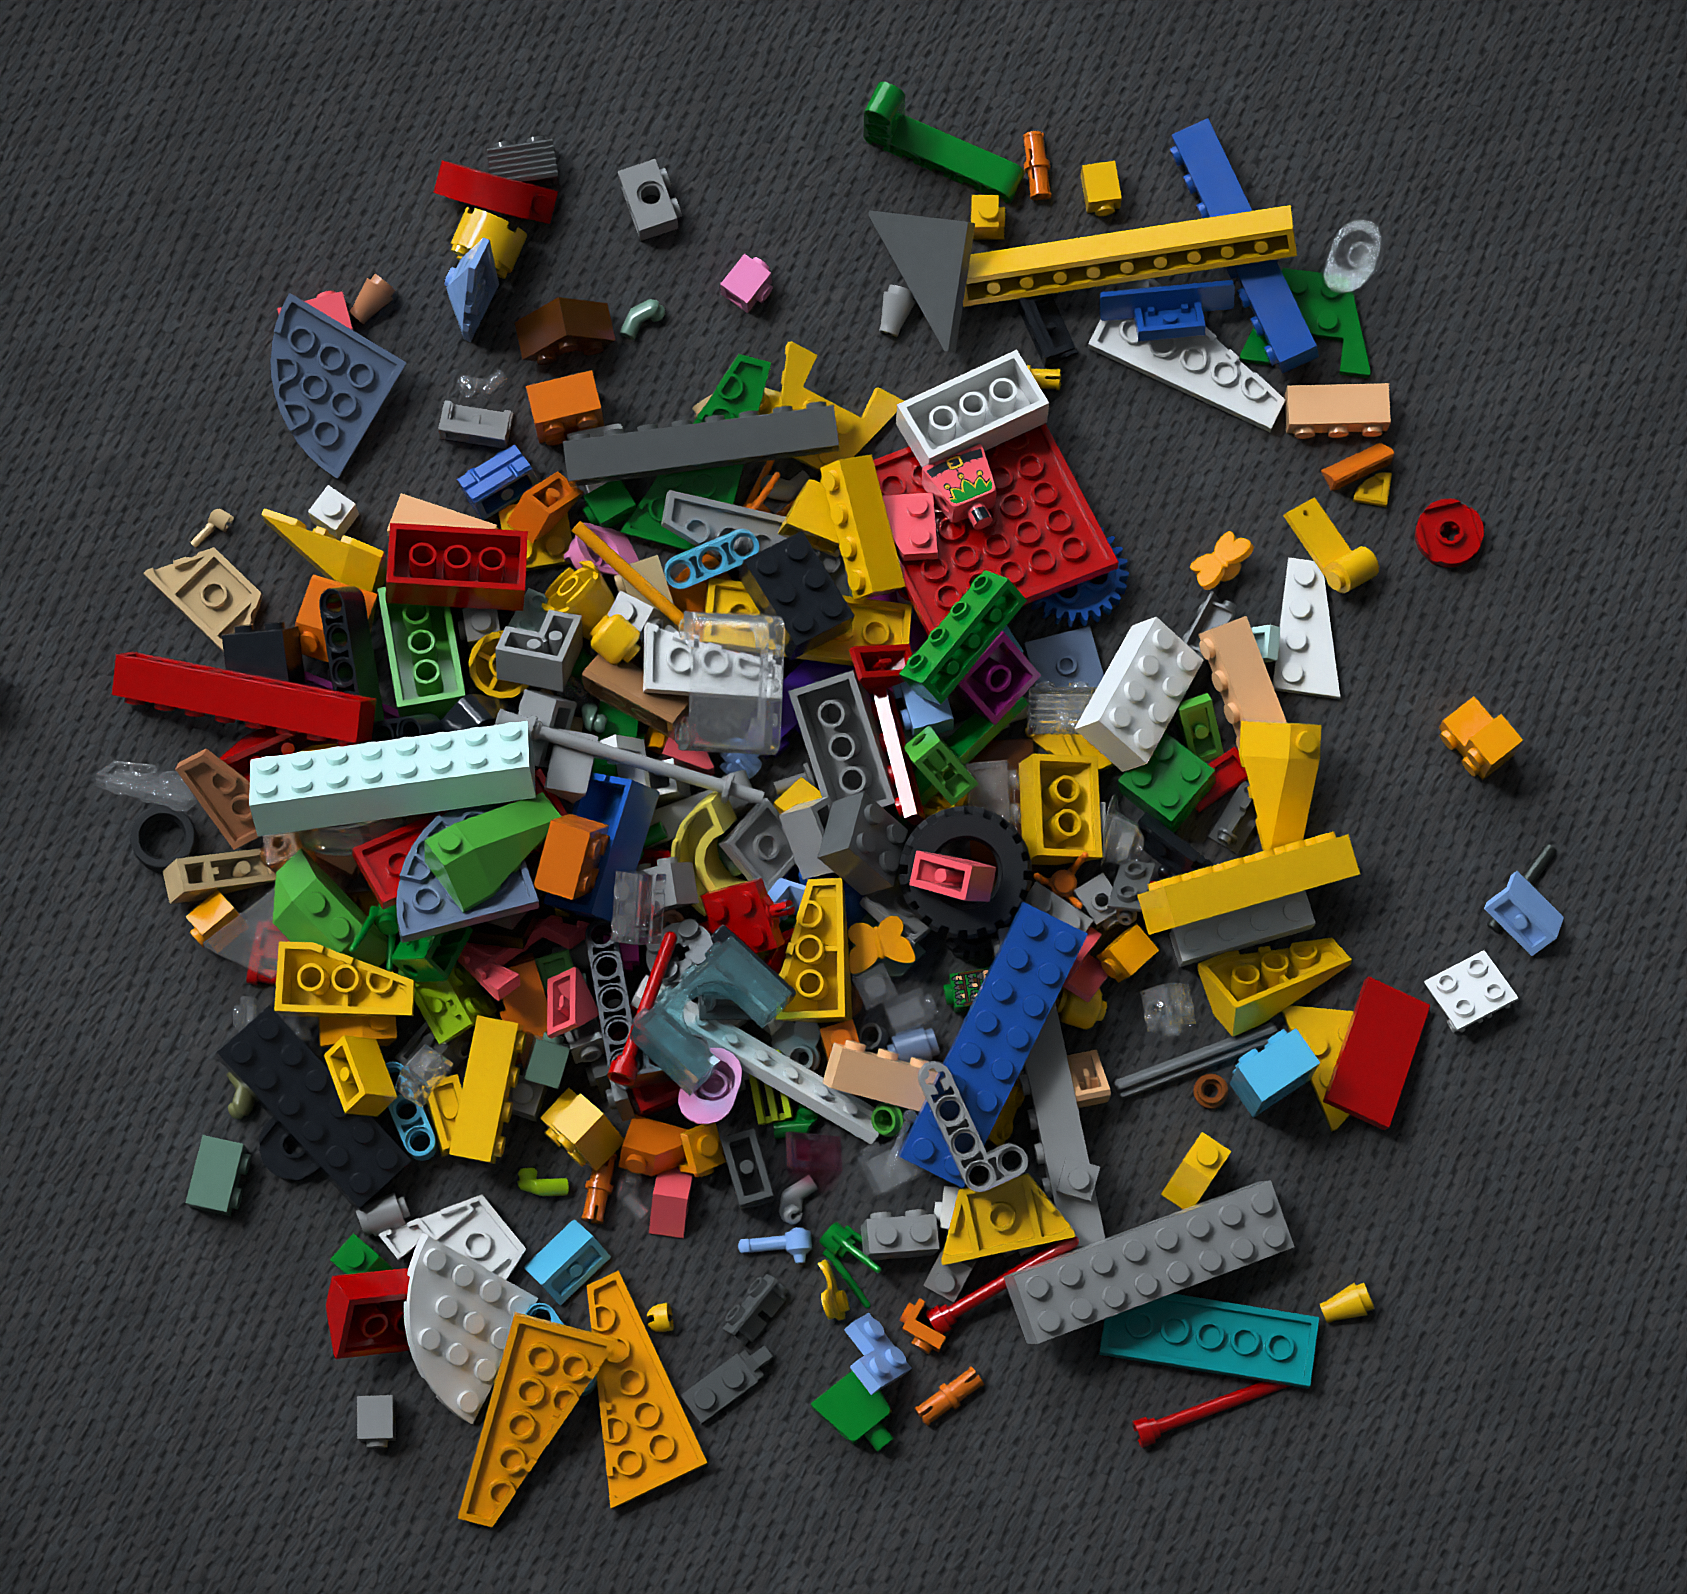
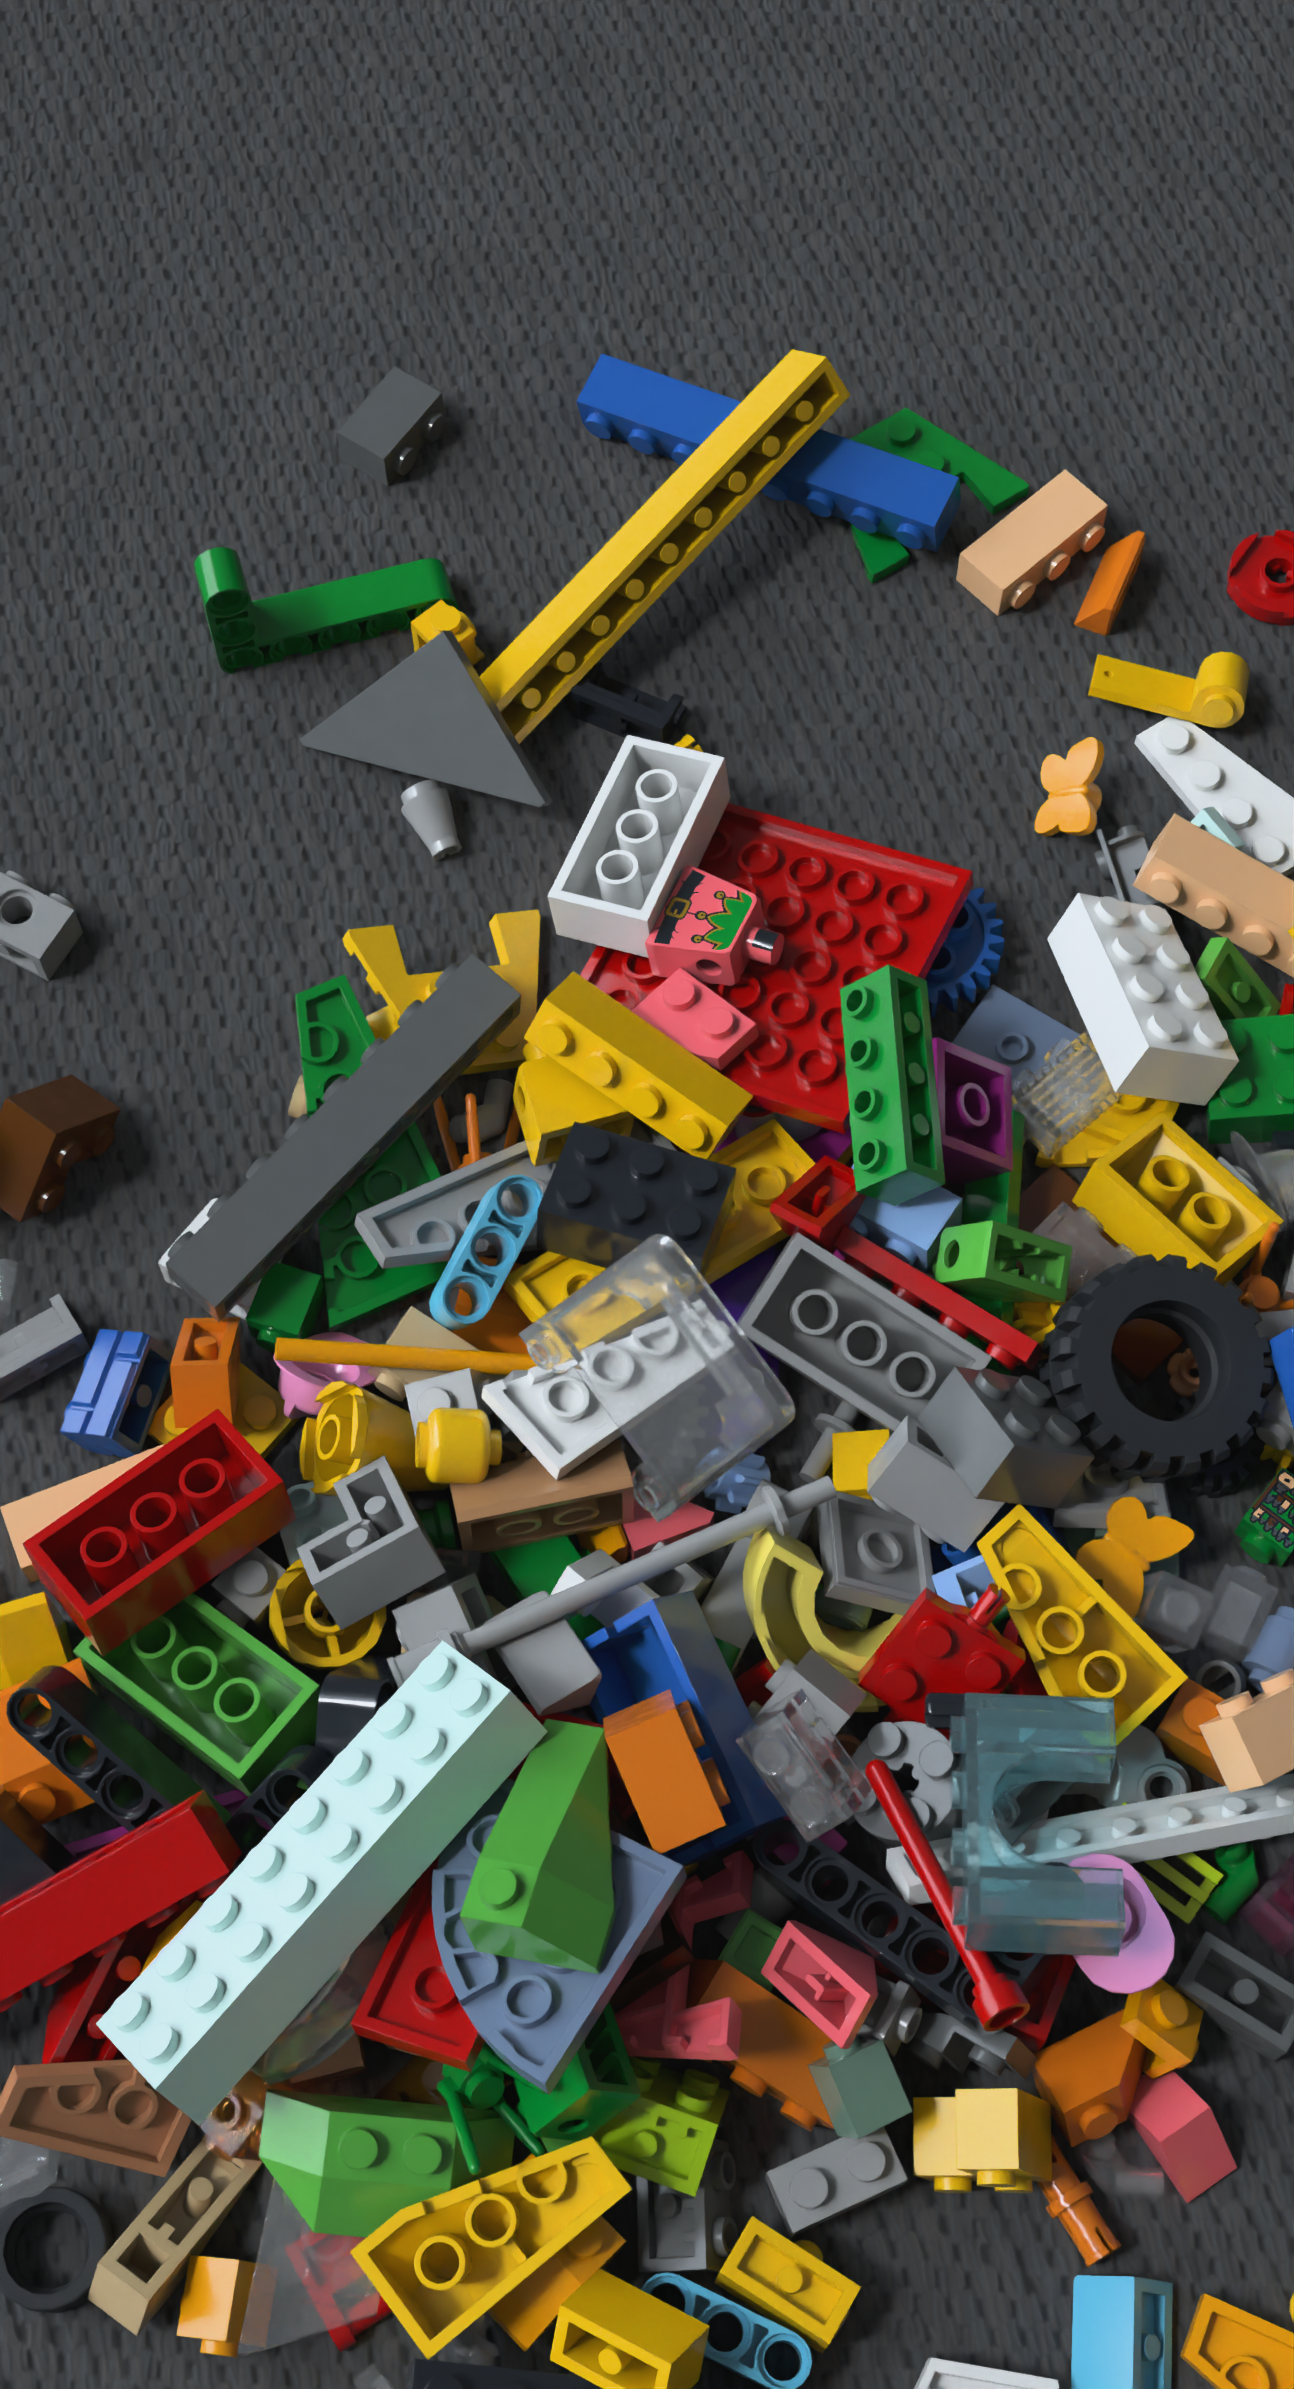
camera: 40 degrees left, 10 degrees down
(422, 1075) = (710, 2261): clear bracket -> none
(487, 1089) = (823, 2204): yellow brick -> none
(542, 1187) = (995, 2271): lime arm -> none
(564, 406) = (125, 1231): orange brick -> none
(592, 719) = (506, 1583): sand green arm -> none
(638, 314) = (122, 1059): sand green arm -> none
(747, 283) = (227, 923): bright pink brick -> none
(953, 876) = (1167, 1375): coral slope -> none
(1036, 165) = (429, 534): orange pin -> none
(1068, 69) = (392, 426): none -> dark grey brick
(1101, 188) = (547, 517): yellow brick -> none
(1168, 310) = (750, 574): blue bracket -> none
(1191, 365) = (792, 619): white wing -> none
(1353, 256) = (899, 366): clear piece -> none
(1374, 490) = (1153, 598): yellow tile -> none

